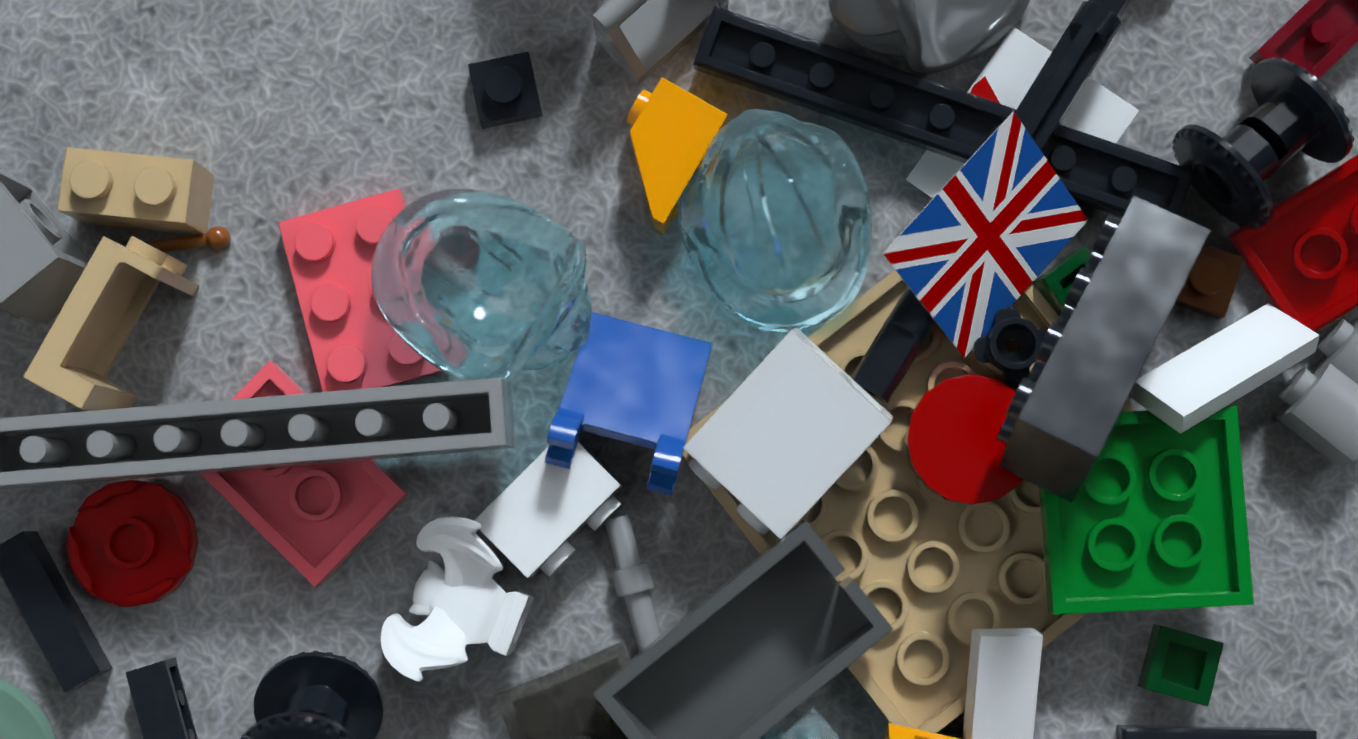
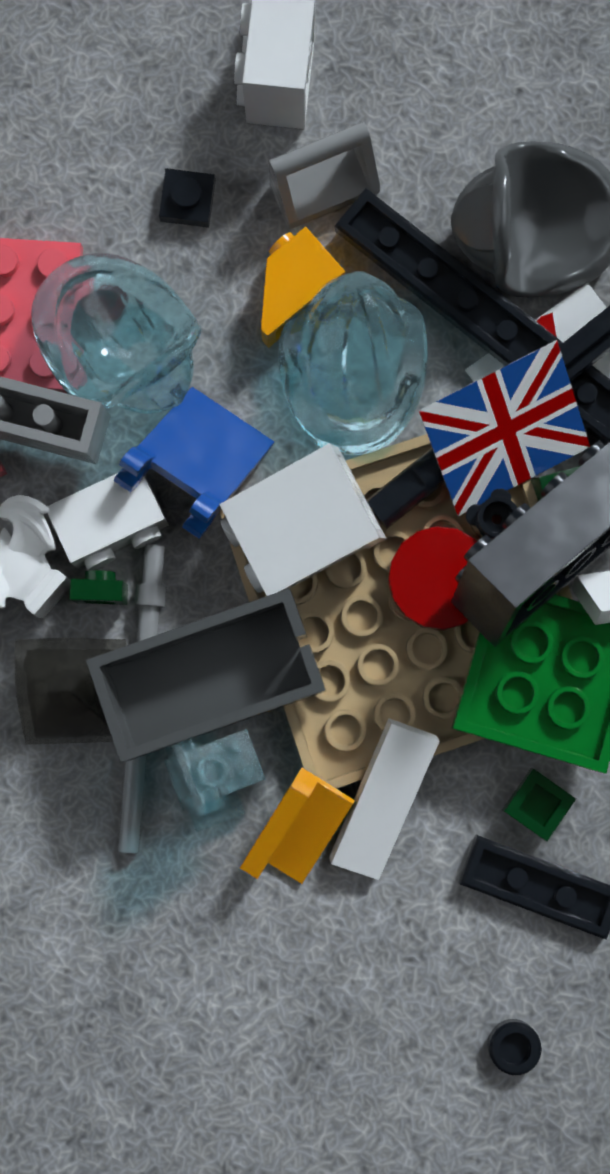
camera: 15 degrees right, 0 degrees up
(569, 594) = (99, 588): none -> dark green plate

